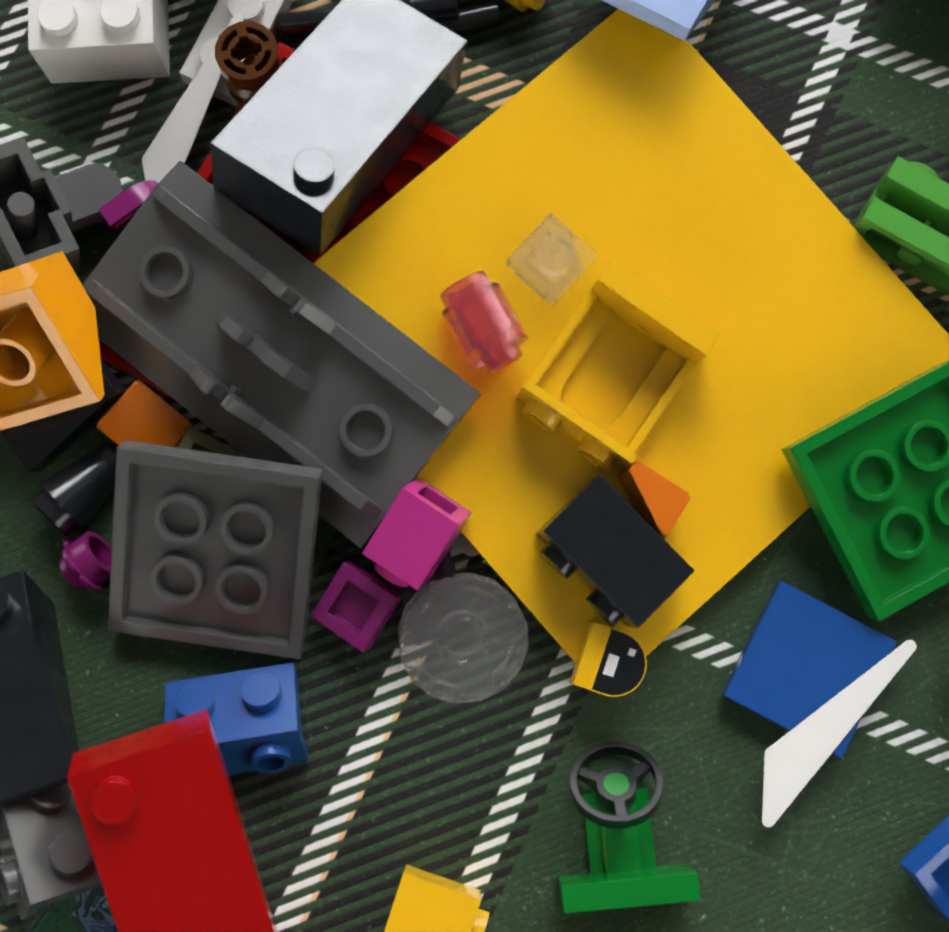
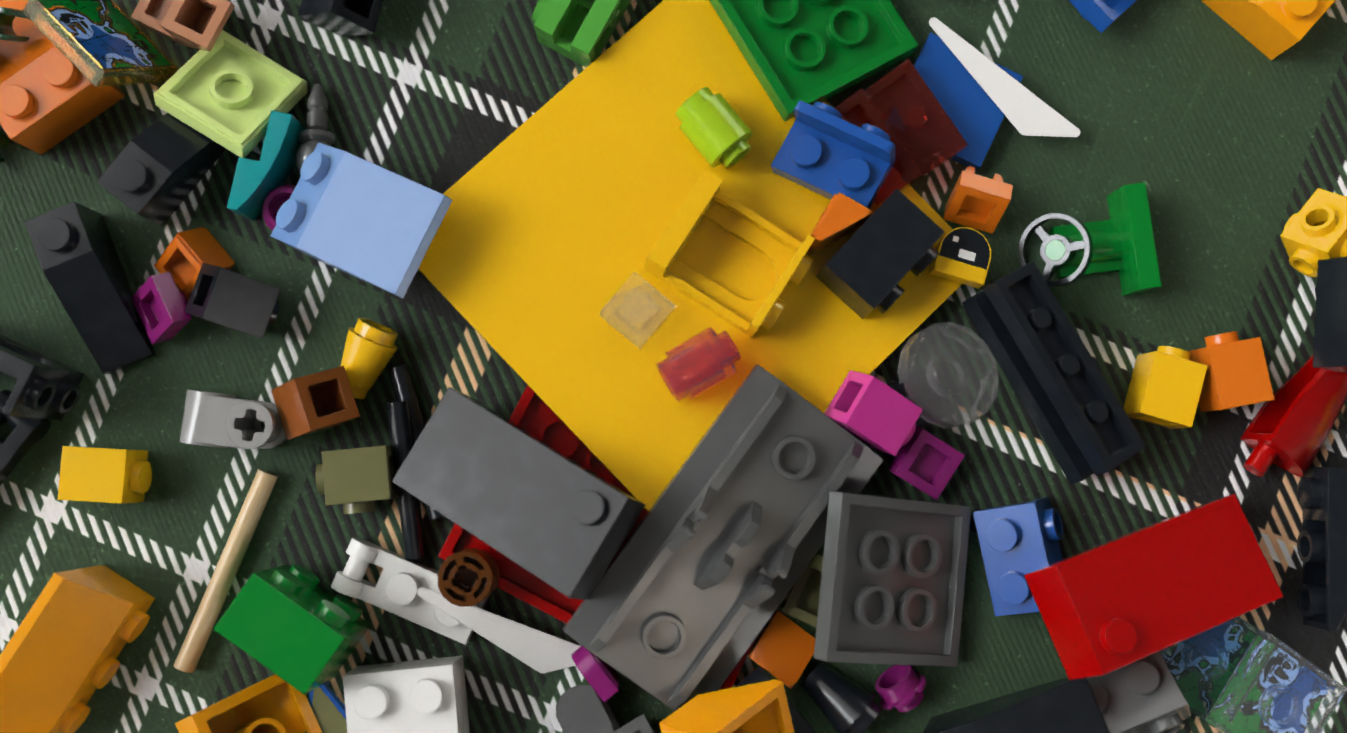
camera: 90 degrees left, 5 degrees up
(457, 767) = (1053, 374): none -> black brick
(681, 688) = (978, 201): none -> orange tile
(736, 503) = (834, 154): none -> blue bracket
(769, 585) = (913, 120): none -> clear red slope
(772, 358) = (714, 128): none -> lime brick

